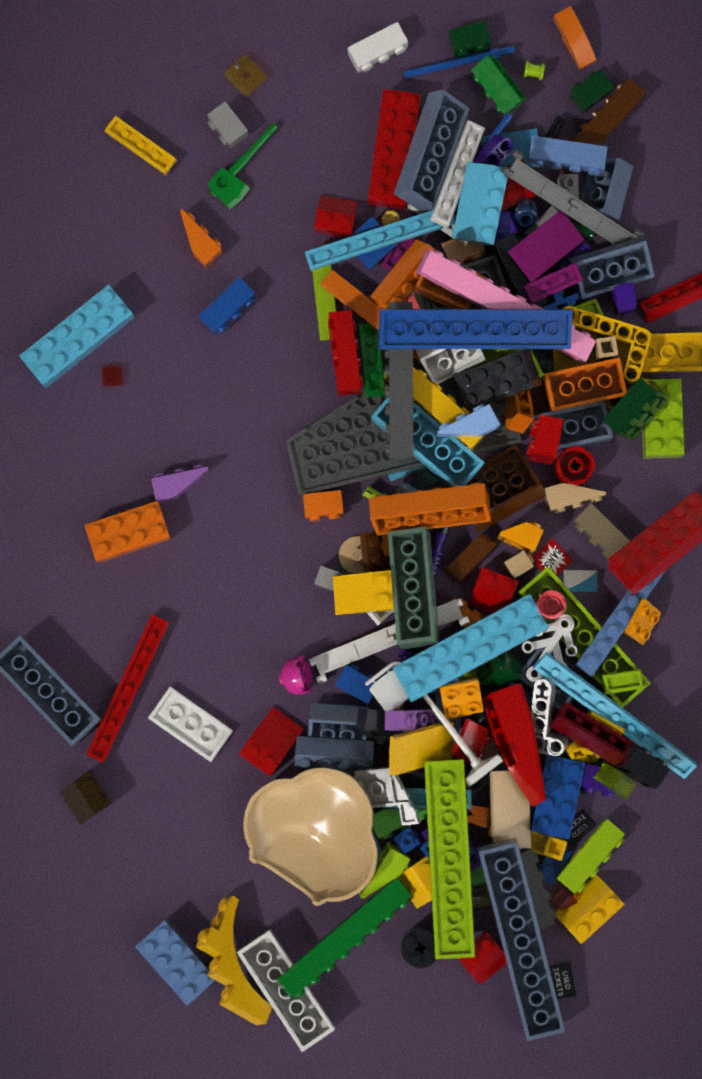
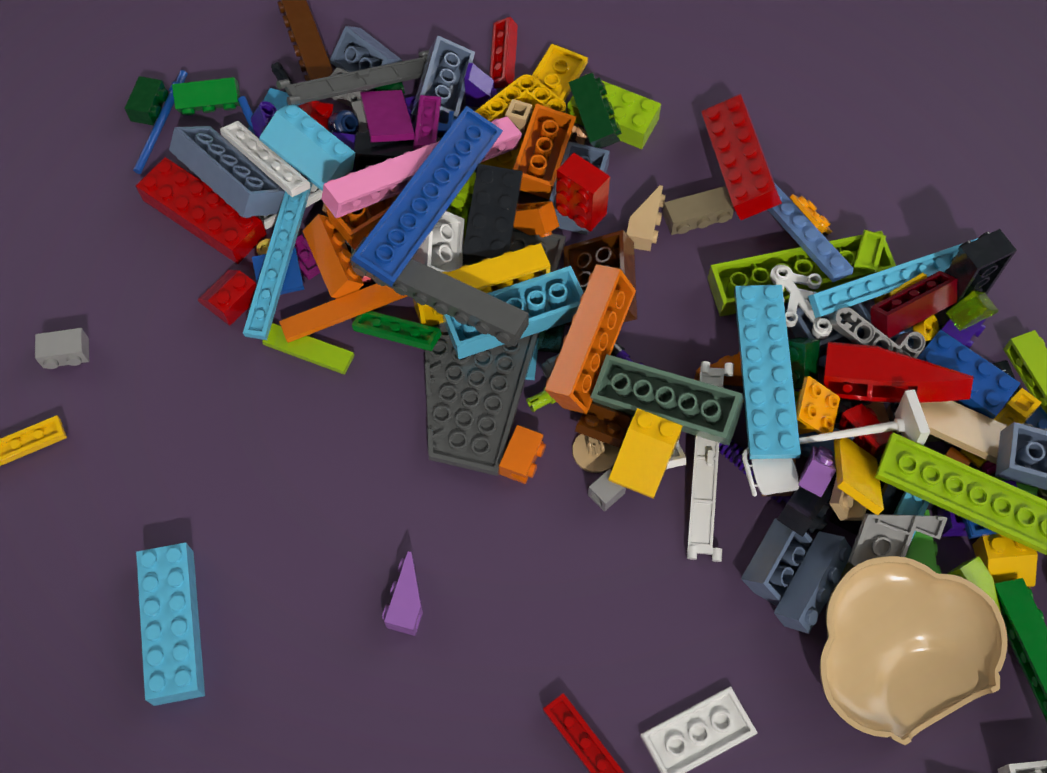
camera: 60 degrees left, 20 degrees down
(112, 376) = (241, 609): clear red tile -> none
(127, 532) = (429, 685): orange brick -> none
(202, 246) = (162, 436): orange slope -> none
(226, 184) = (119, 382): green piece -> none
(227, 306) = (247, 444): blue brick -> none
(235, 76) = (19, 315): clear yellow piece -> none
(271, 741) = (766, 649): red slope -> none
(296, 676) = (702, 579): dark pink cylinder -> none
(344, 353) = (371, 346): red wedge -> none
(354, 683) = (742, 518): blue brick -> none
(378, 47) = (93, 178): white brick -> none
(407, 839) = (953, 550): blue bracket -> none
(471, 557) = (659, 339): reddish brown beam -> none
(473, 425) = (528, 248): light blue slope -> none
(492, 591) = (708, 334): red slope -> none
(519, 564) = (691, 298): tan brick -> none
(522, 536) = (668, 276): light orange slope -> none
(534, 70) = (216, 64): lime bush -> none
(551, 604) = (756, 273): coral hair -> none
(553, 557) = (697, 270): sticker -> none
(567, 154) = (316, 58): medium blue brick -> none
(574, 37) = (209, 20): orange slope -> none
(581, 458) = (622, 201): red brick -> none
(581, 580) = (737, 250): sticker -> none
(591, 91) = (268, 30): dark green brick -> none

